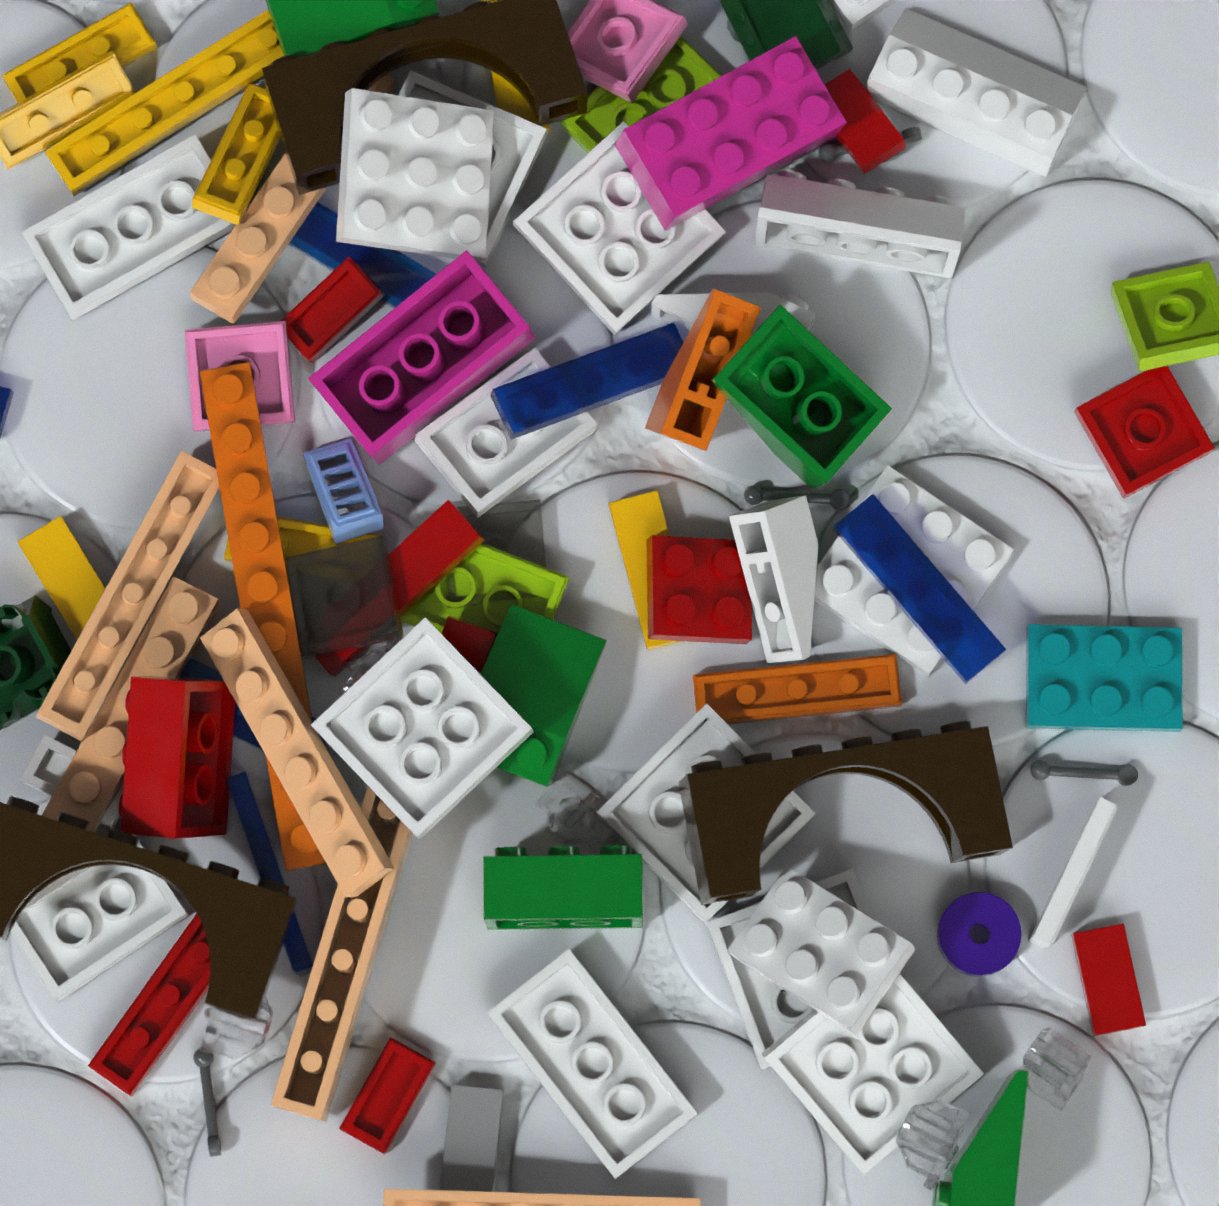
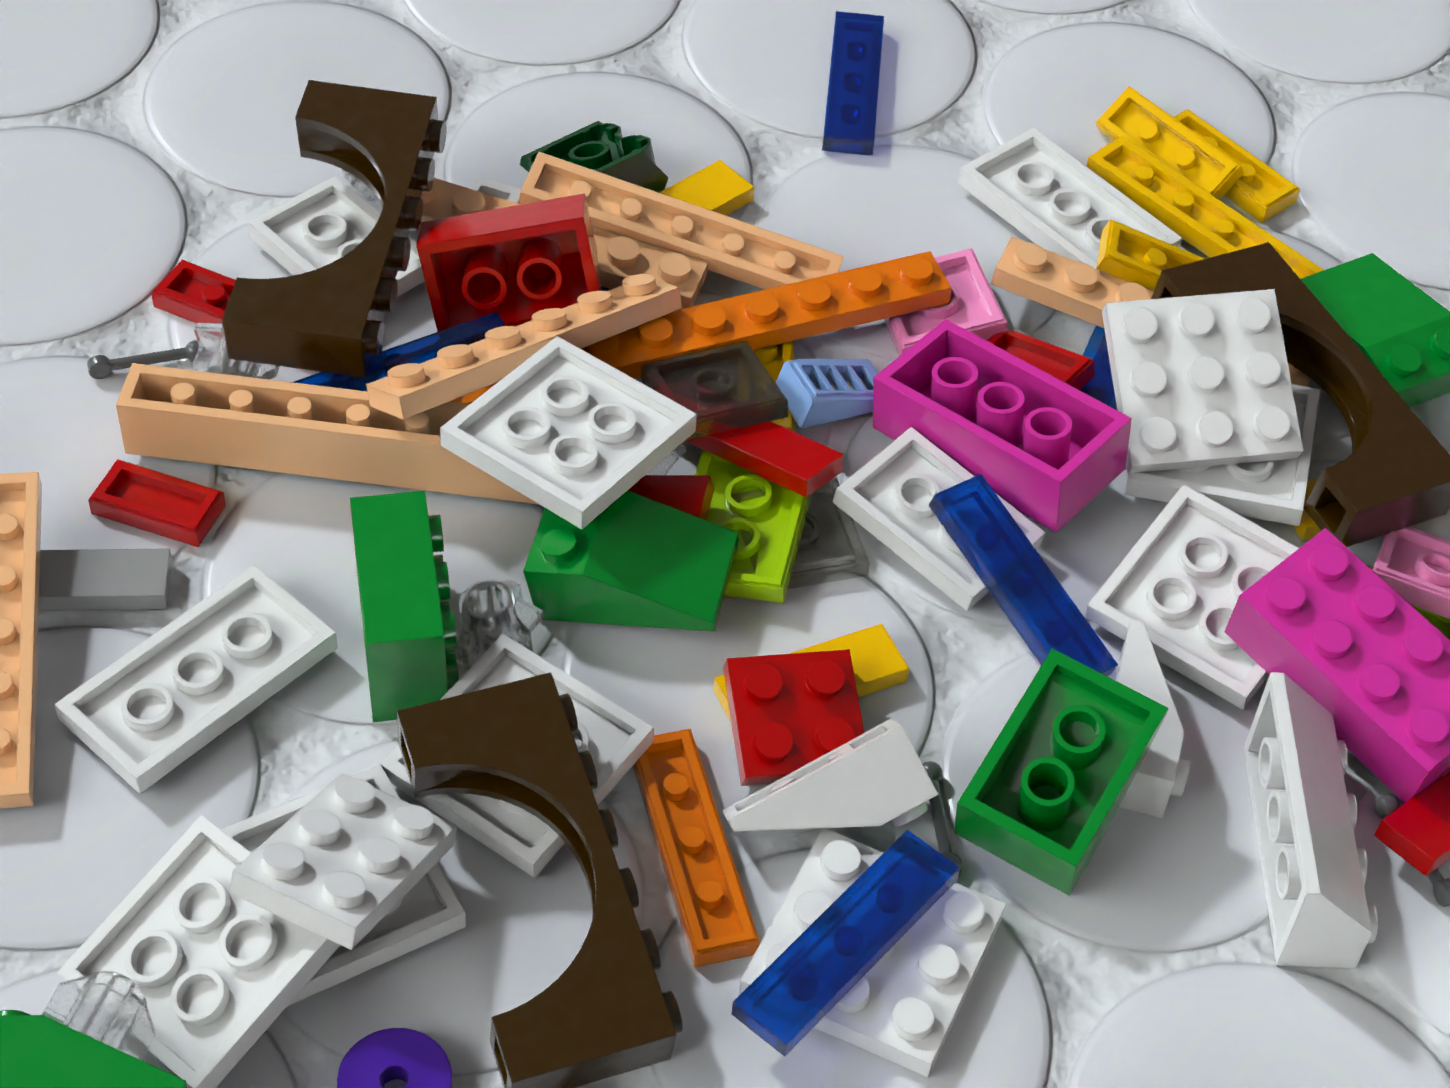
camera: 75 degrees right, 30 degrees down
(688, 399) = (1009, 657): orange slope -> none

